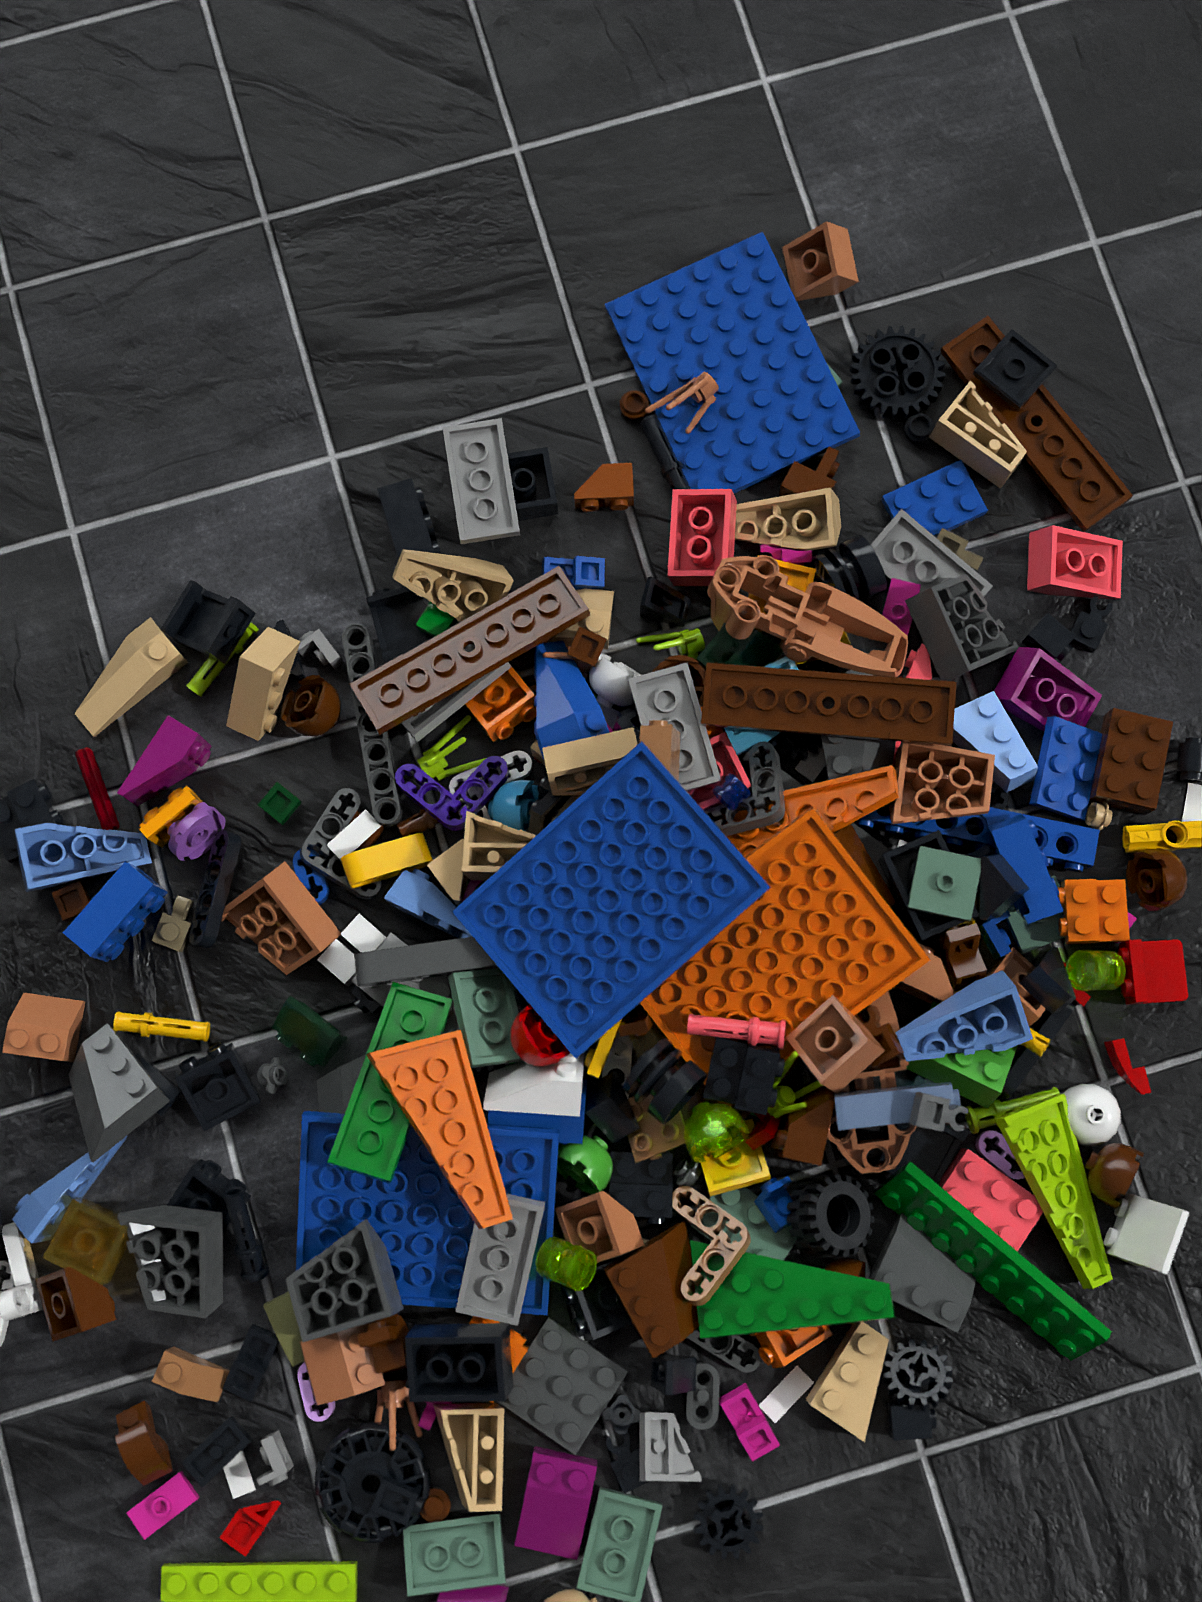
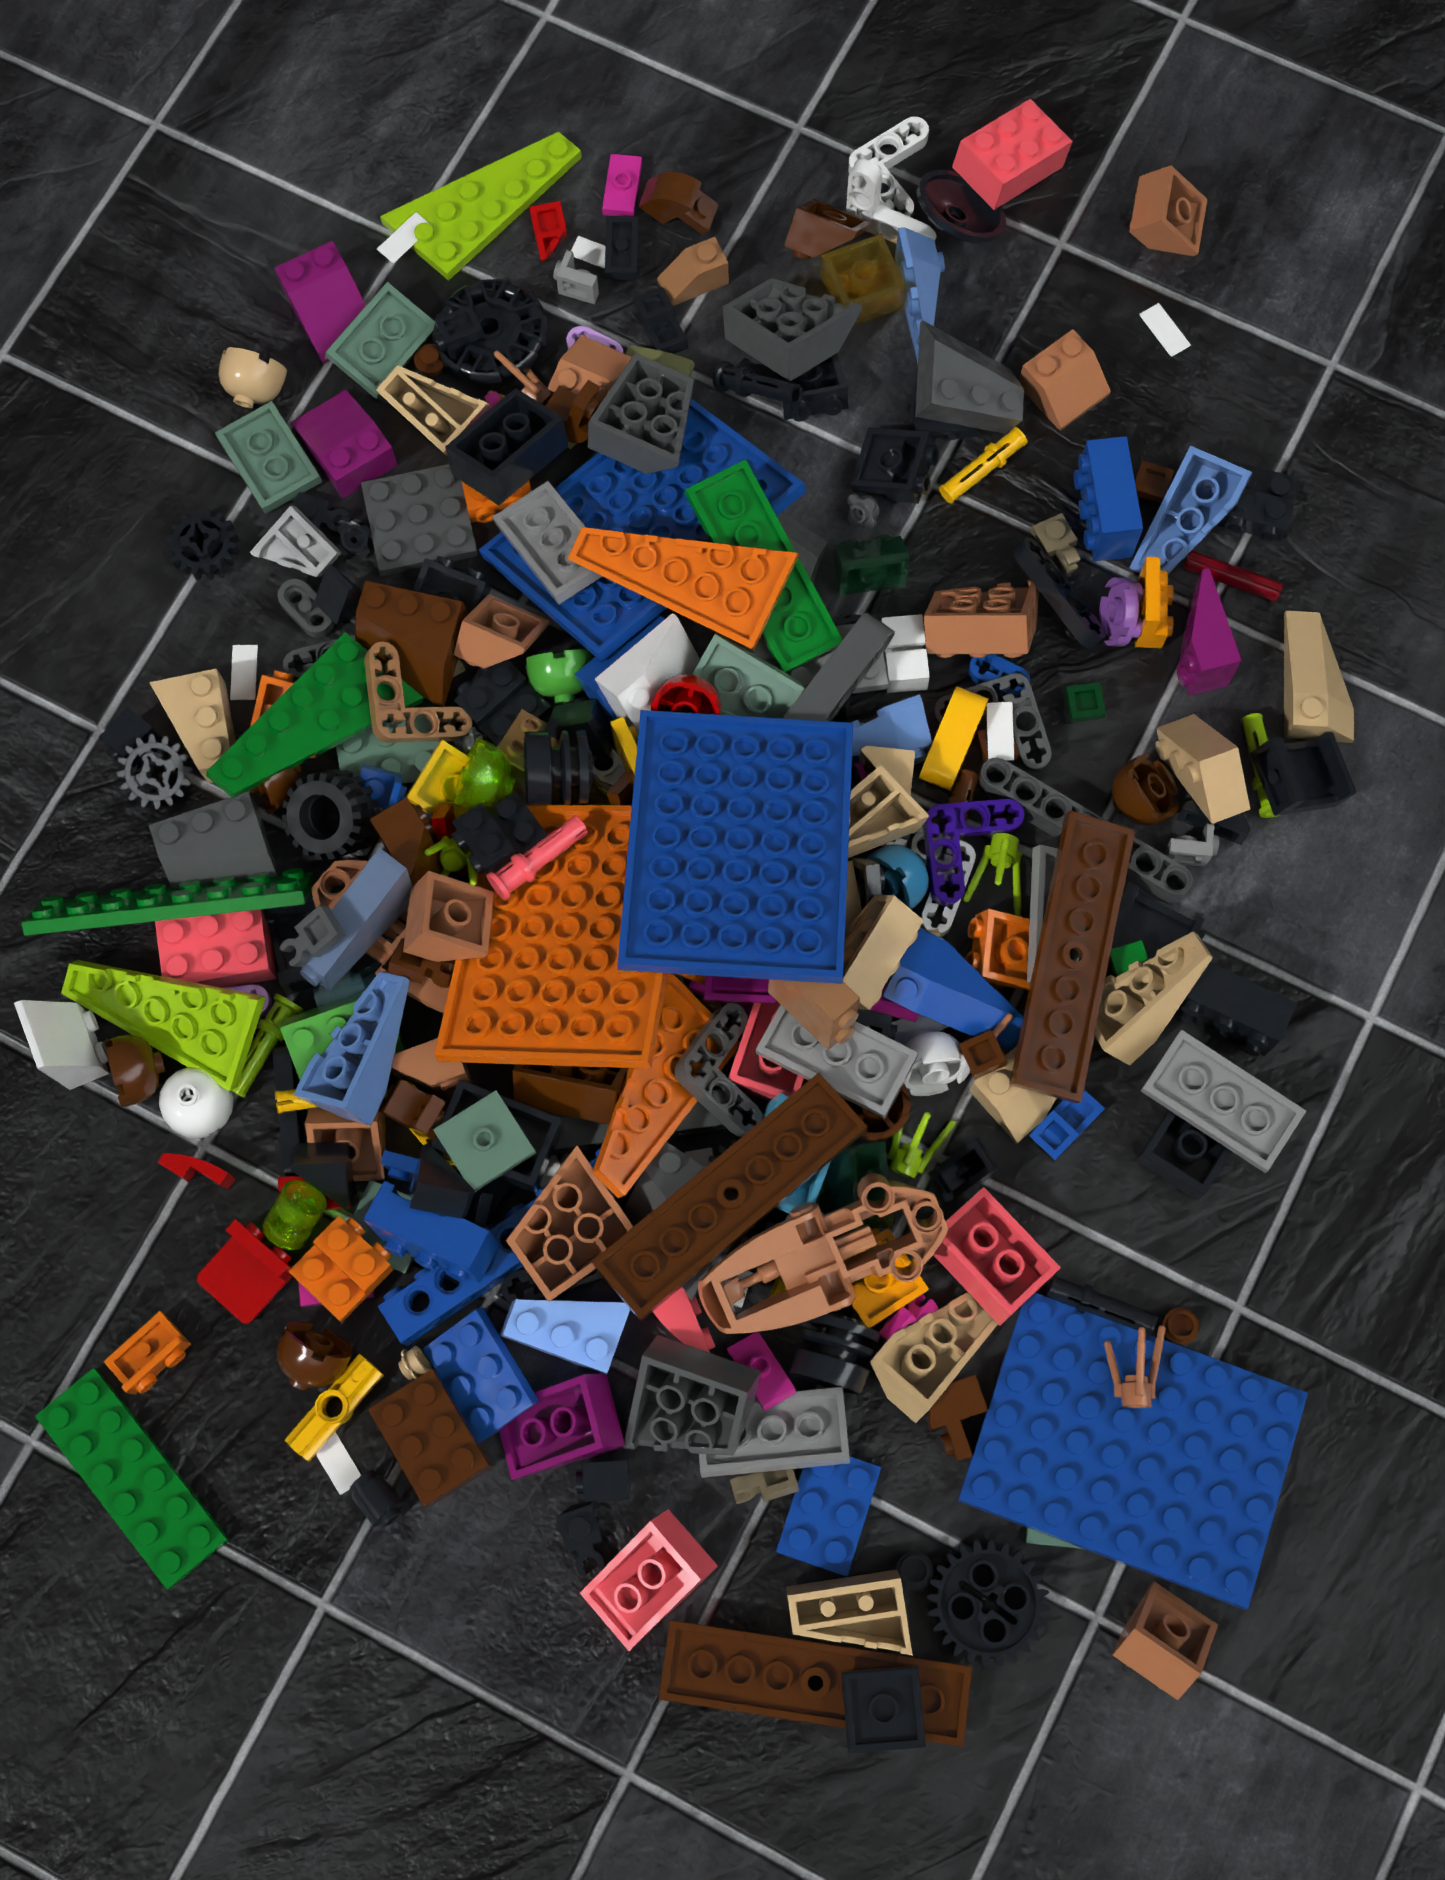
camera: 135 degrees right, 5 degrees down
(566, 1263) = (498, 583): clear neon green wheel -> none
(607, 487) = (1120, 1225): dark orange slope -> none
(731, 792) = (737, 1050): clear blue wheel -> none
(749, 1422) = (253, 626): dark pink slope -> none

